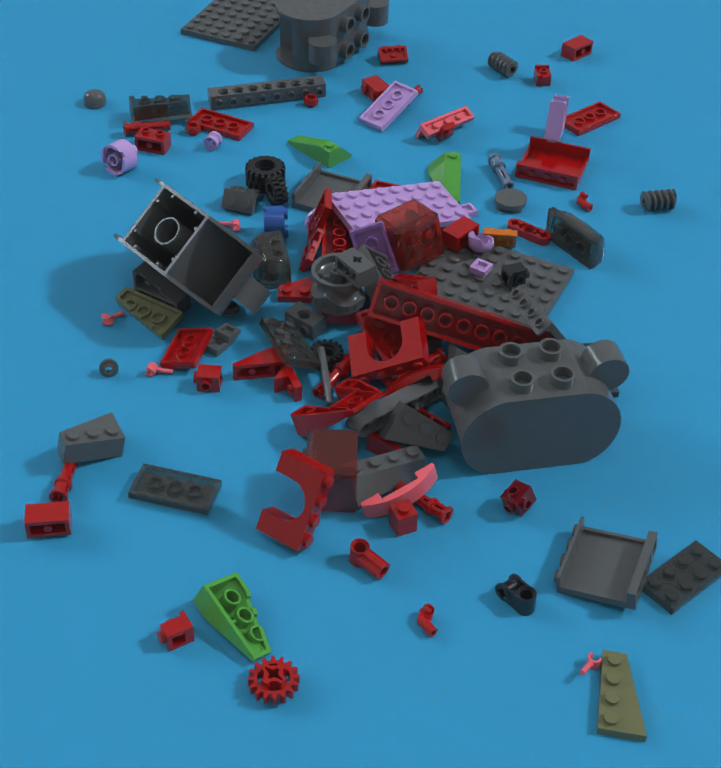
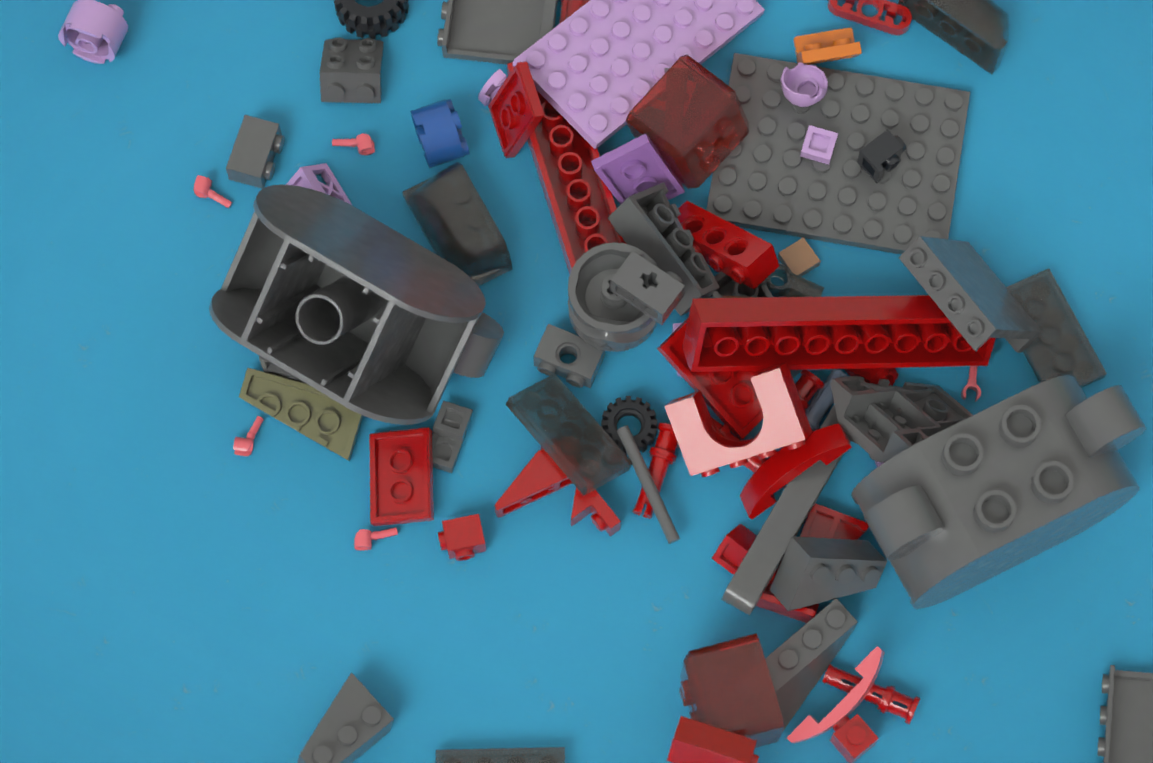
camera: 15 degrees left, 30 degrees up
(108, 363) = (295, 559): dark grey plate -> none
(276, 190) = (408, 41): black tyre -> none
(296, 291) = (529, 281): red wing -> none
(310, 250) = (521, 186): red wing -> none
(352, 397) = (715, 567): red wedge -> none
(456, 234) = (762, 72): red brick -> none
(518, 498) = (1019, 648): dark red brick -> none

